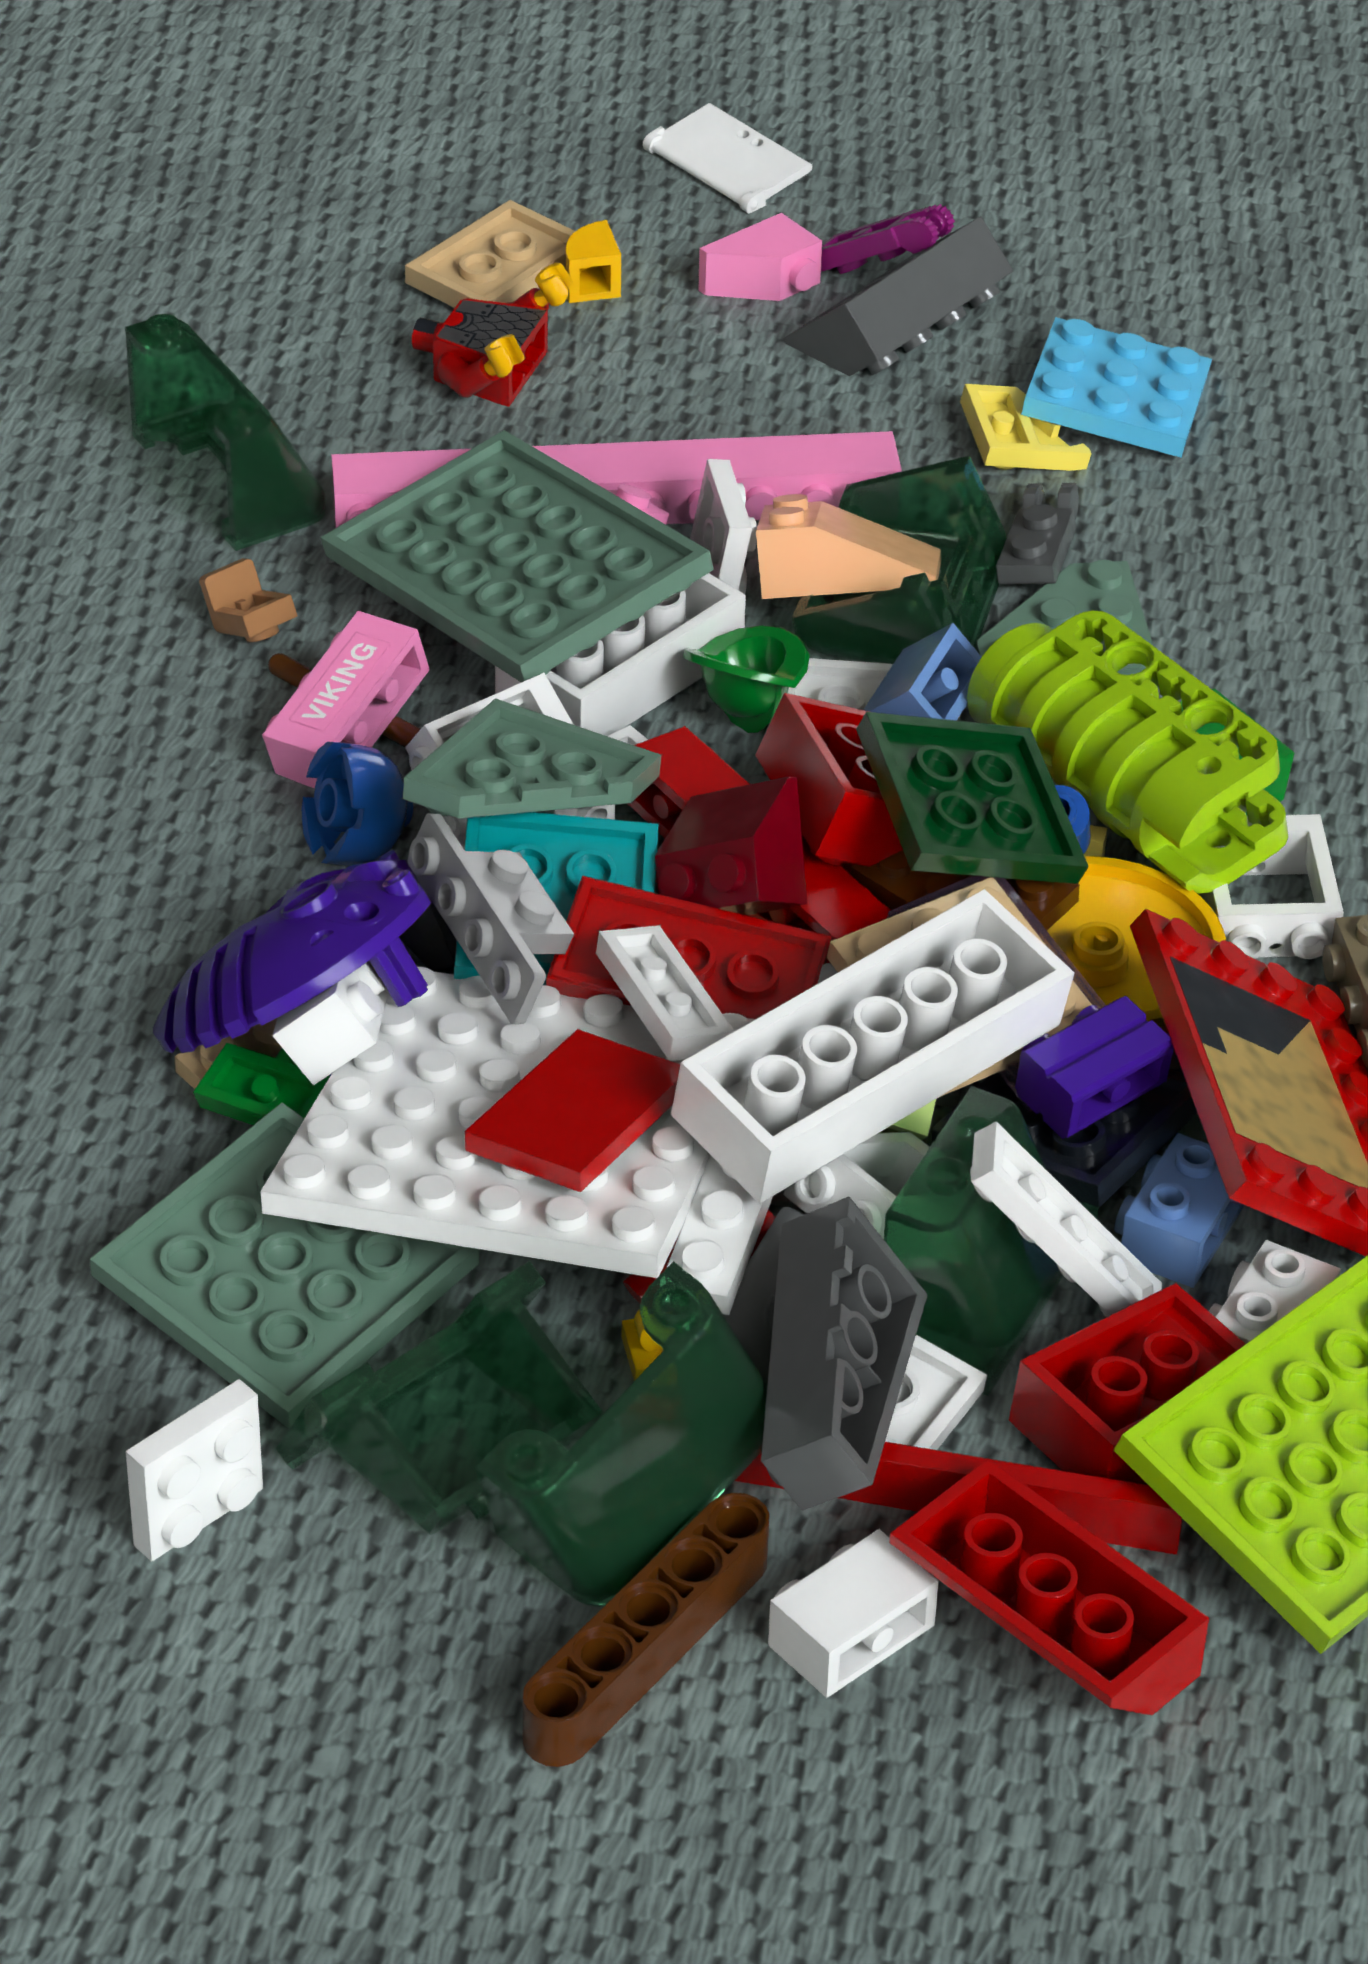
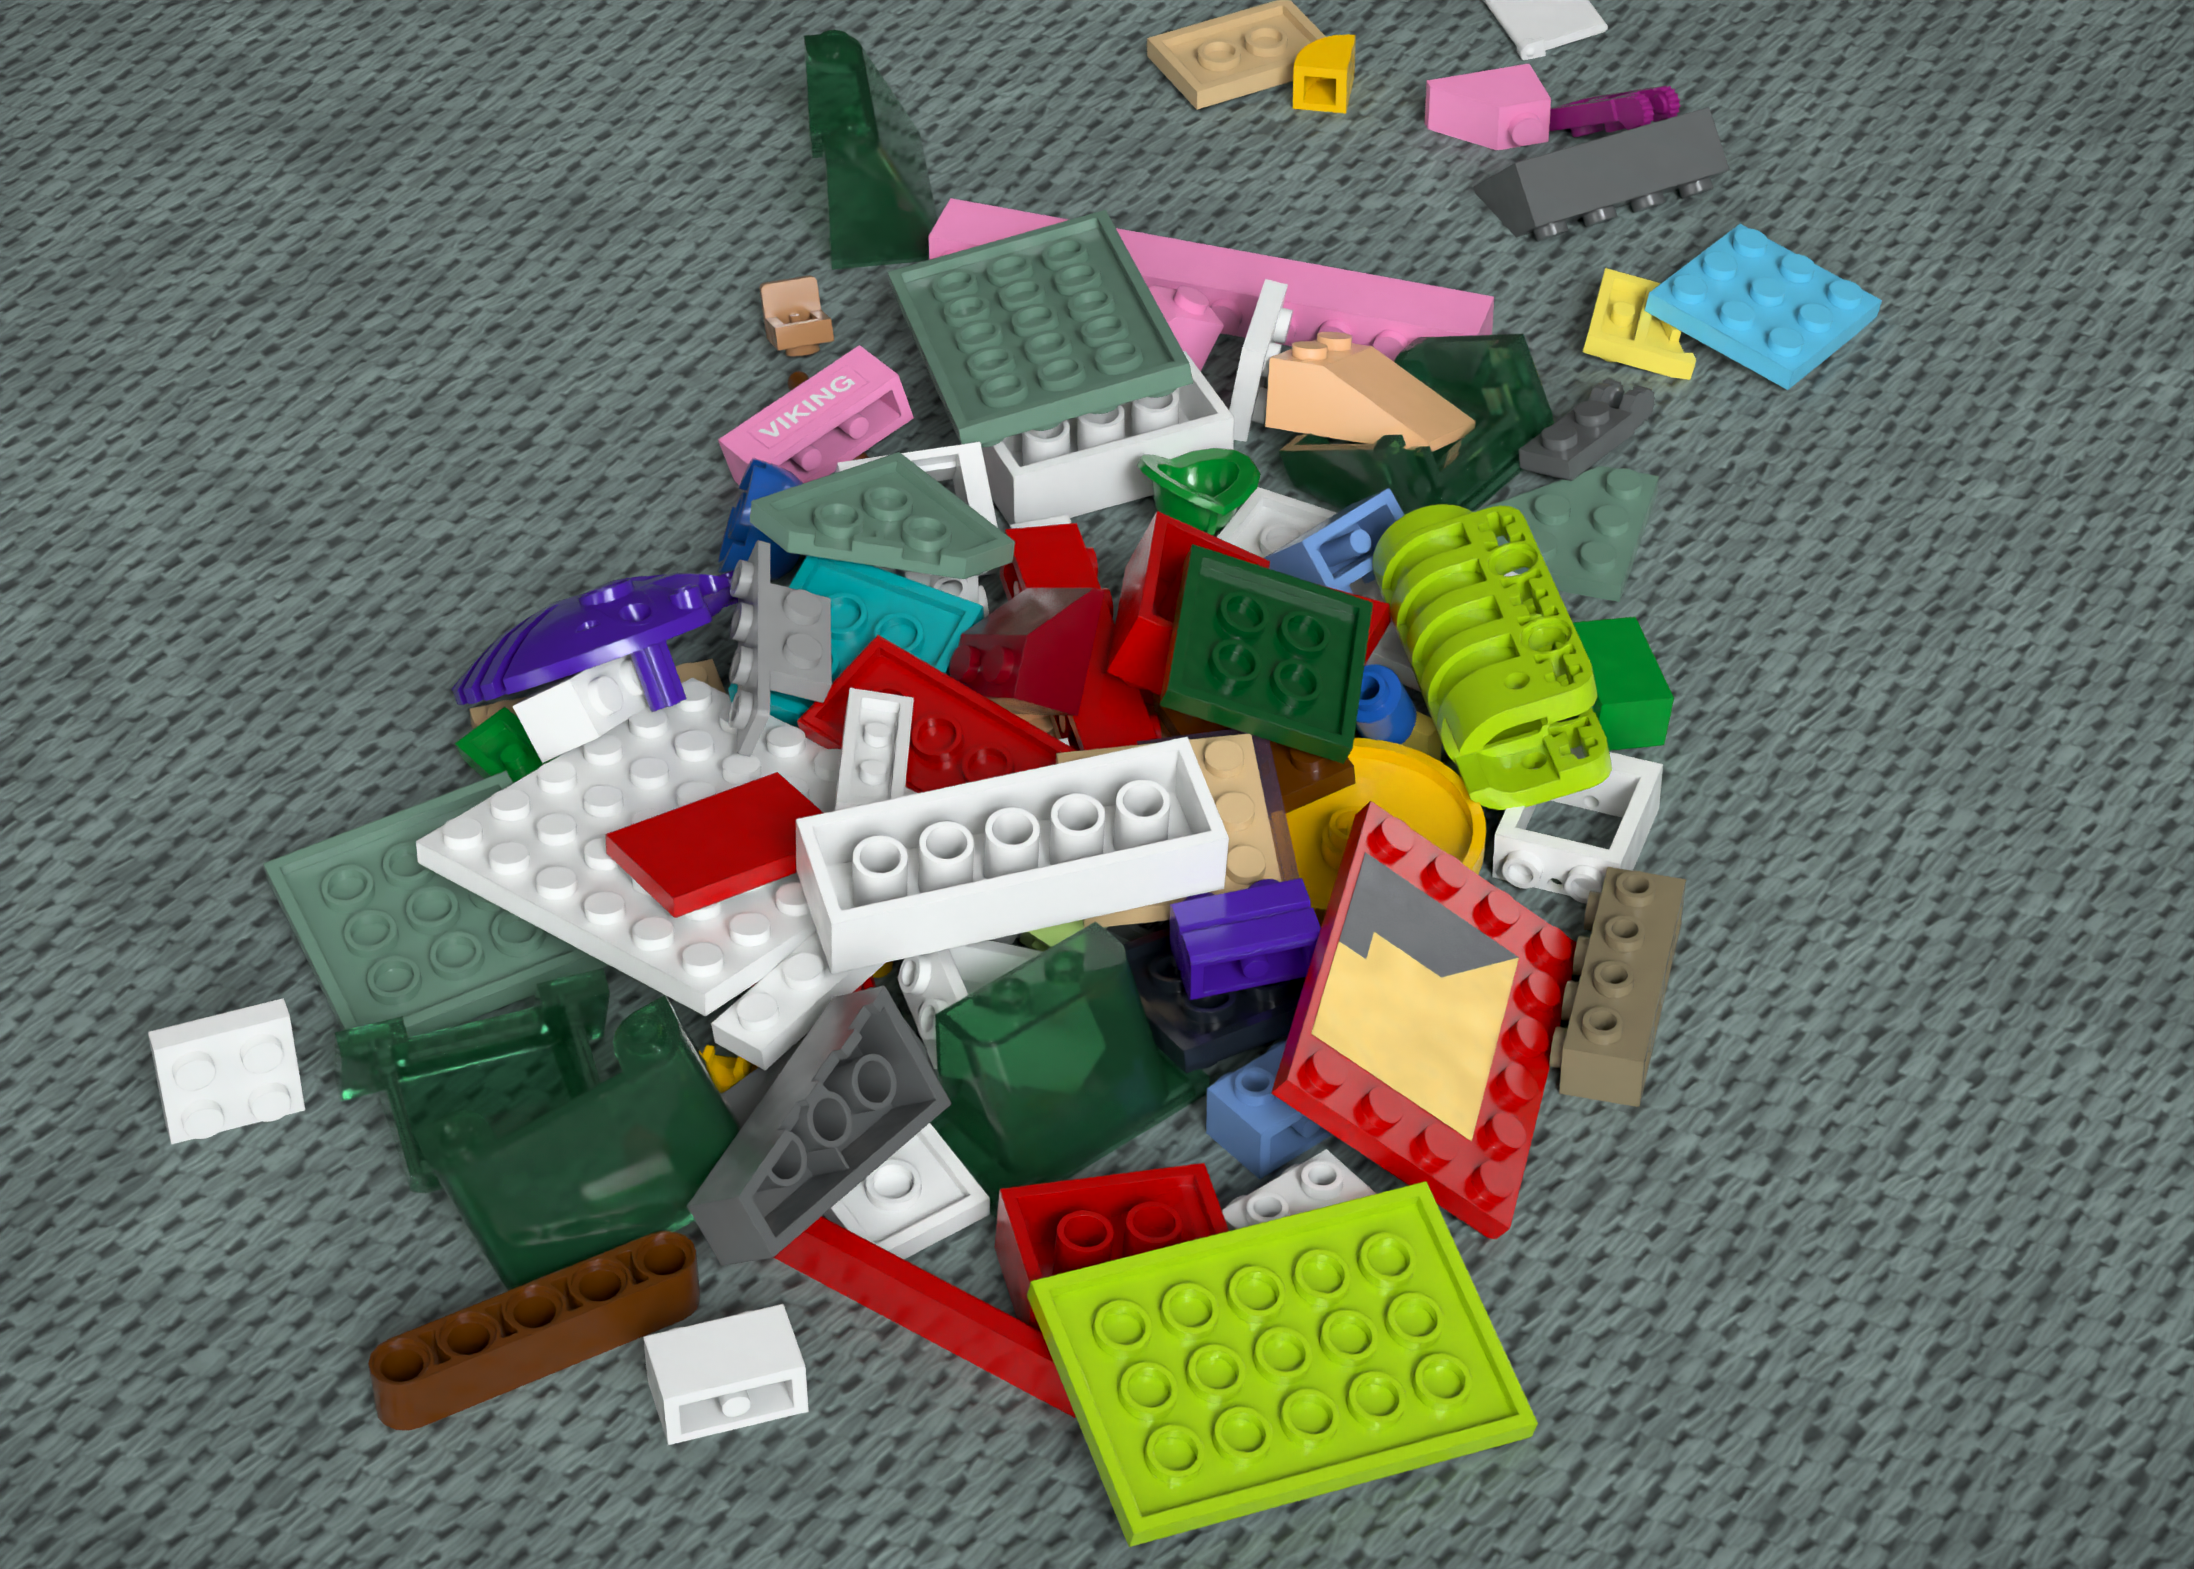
camera: 25 degrees right, 0 degrees up
(493, 345) = (1181, 131): torso -> none
(1057, 1222) = (1110, 1071): white plate -> none
(1058, 1589) = (902, 1413): red slope -> none

